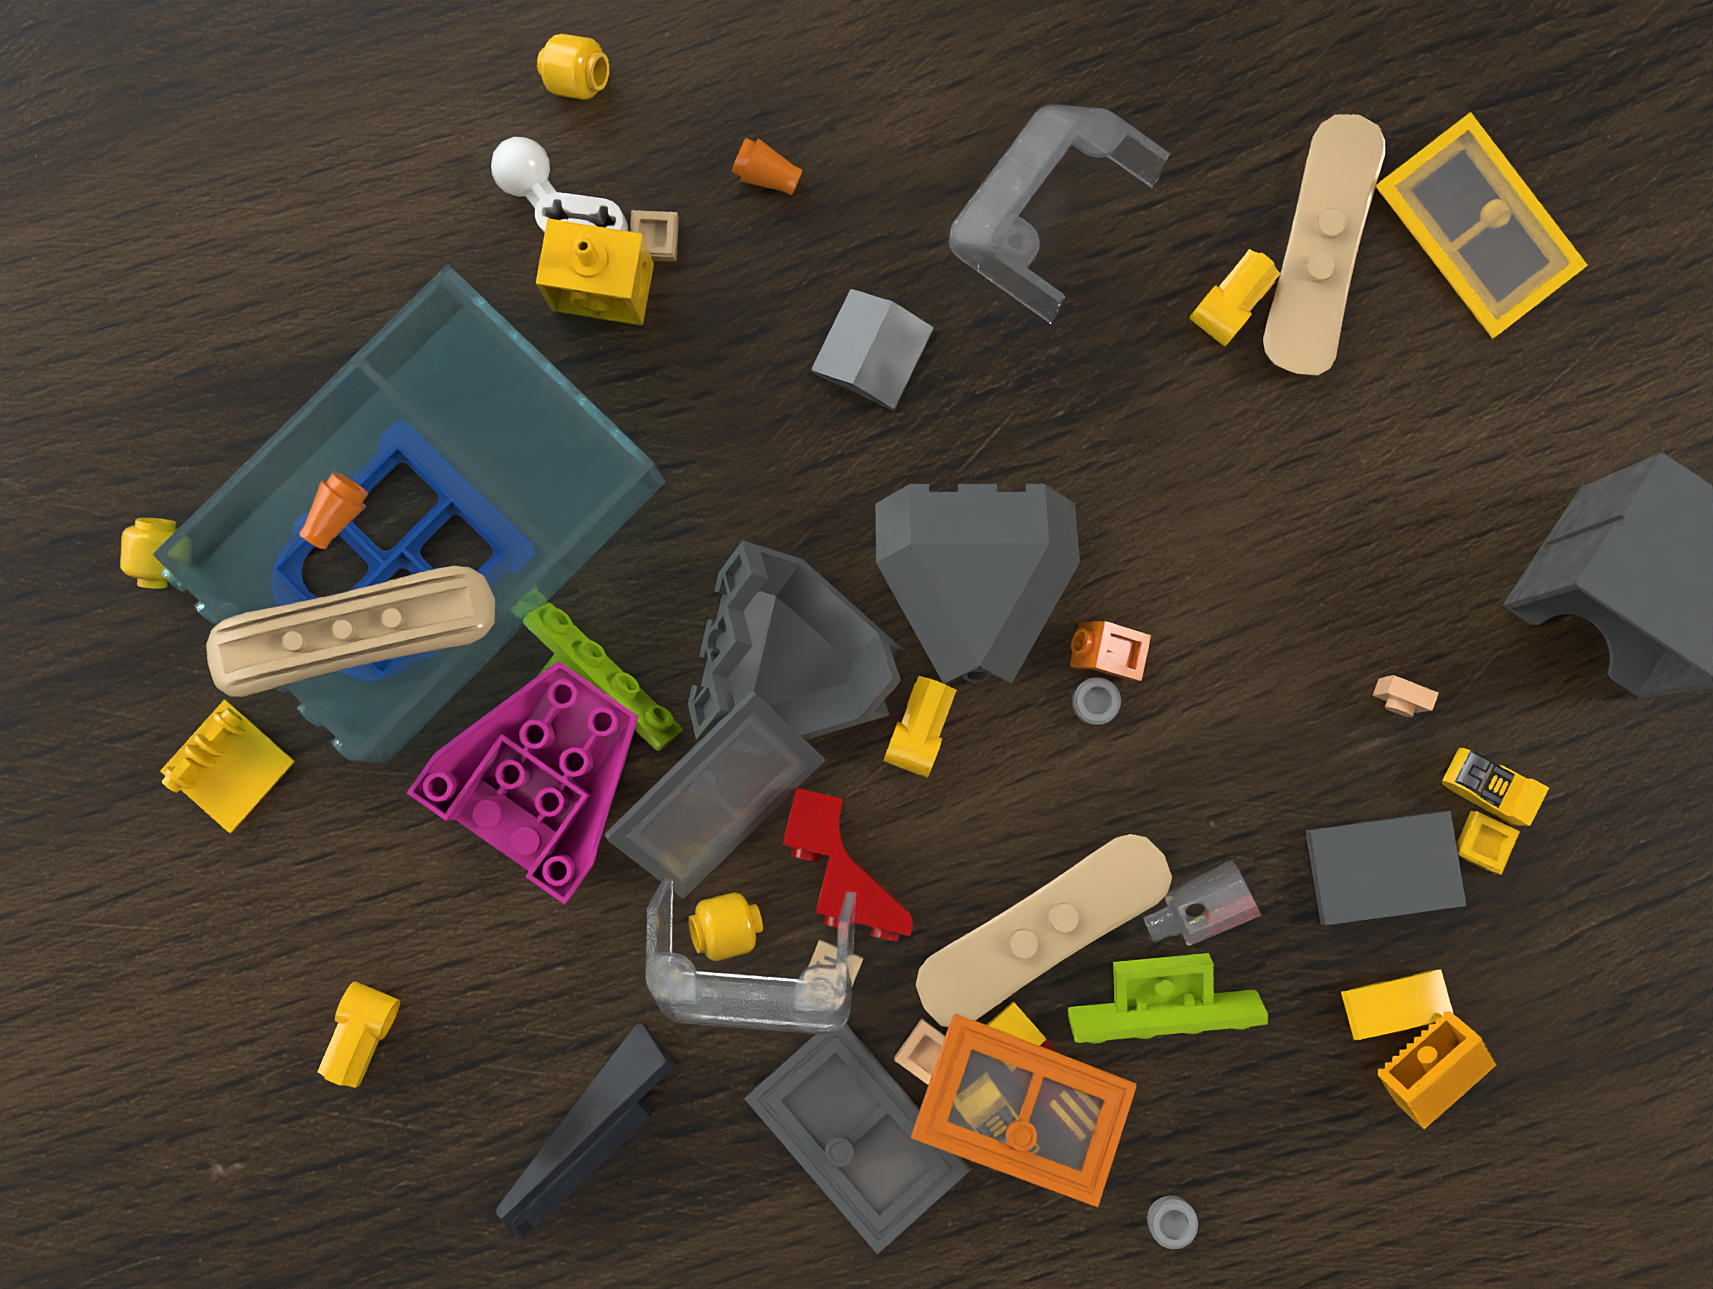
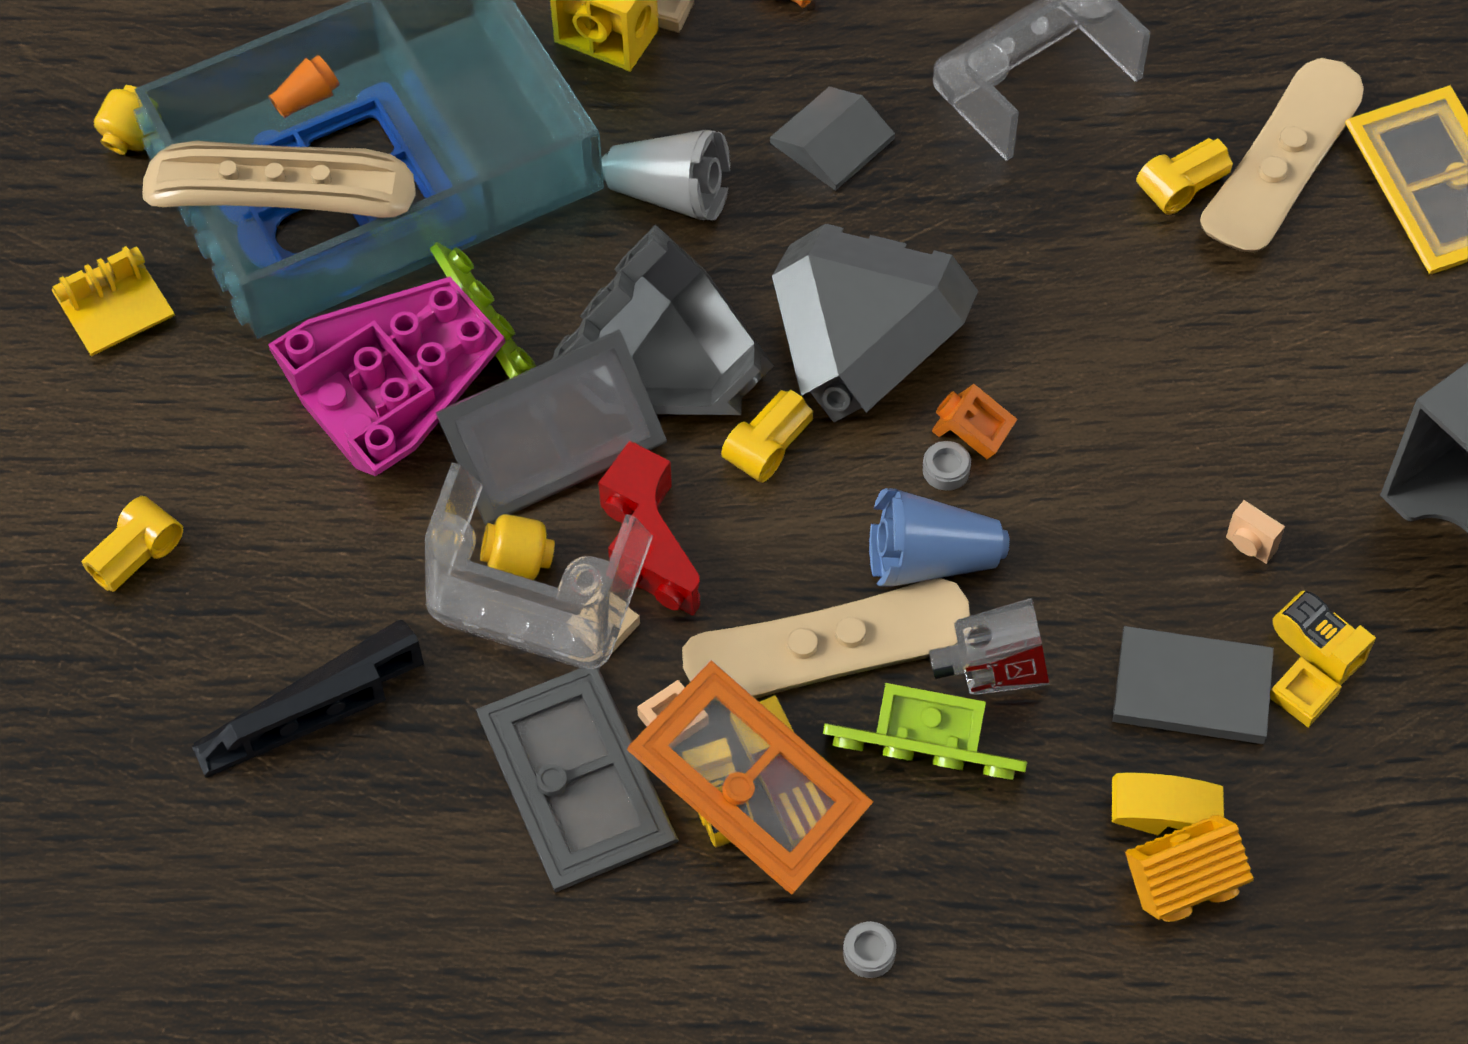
camera: 20 degrees right, 25 degrees down
(731, 456) = (672, 172): none -> light grey cone
(1111, 804) = (930, 540): none -> medium blue cone

